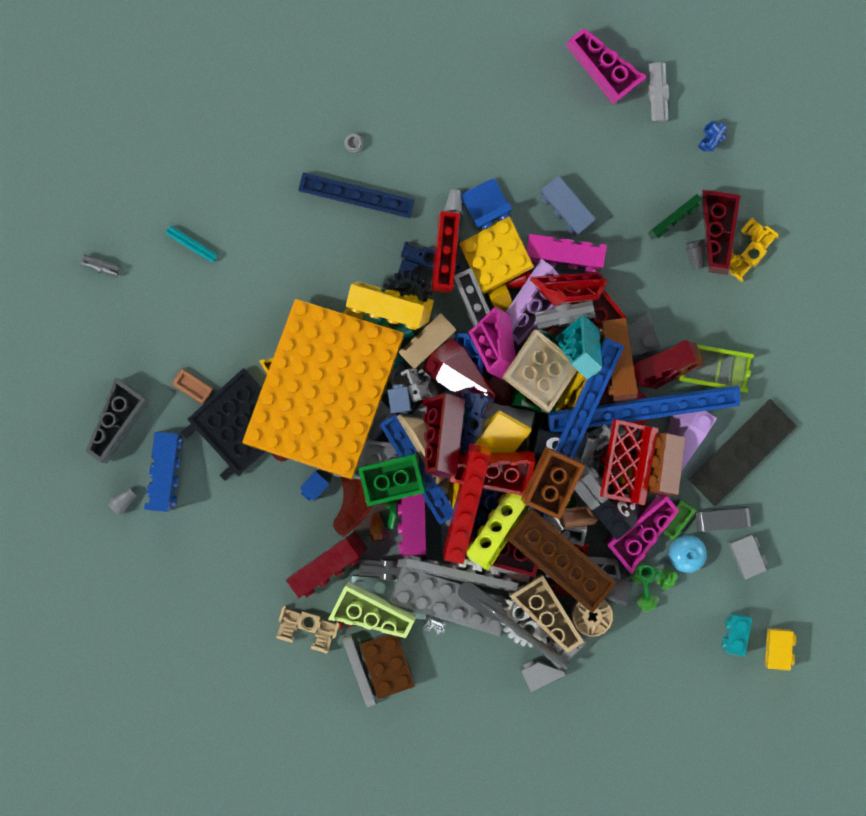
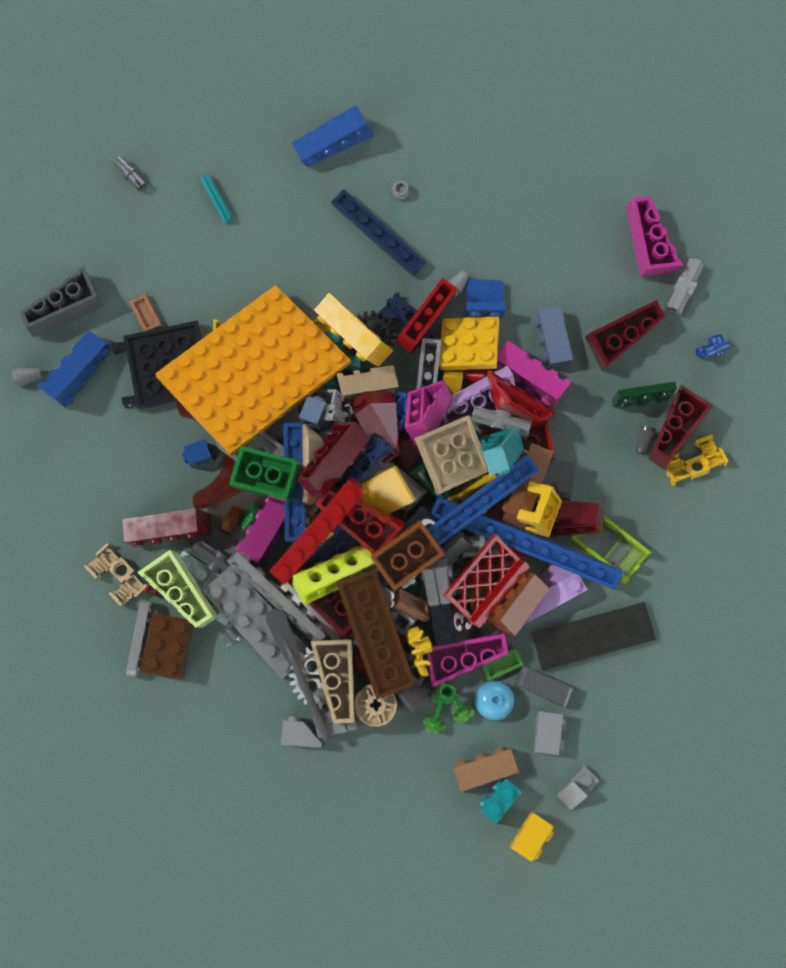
camera: 30 degrees right, 10 degrees down
(265, 128) = (333, 137): none -> blue wedge
(604, 547) = (421, 647): none -> yellow animal
(624, 173) = (616, 337): none -> dark red wedge
(648, 377) = (546, 512): none -> yellow panel
(711, 615) = (485, 768): none -> medium nougat brick
(795, 588) = (577, 788): none -> light grey slope

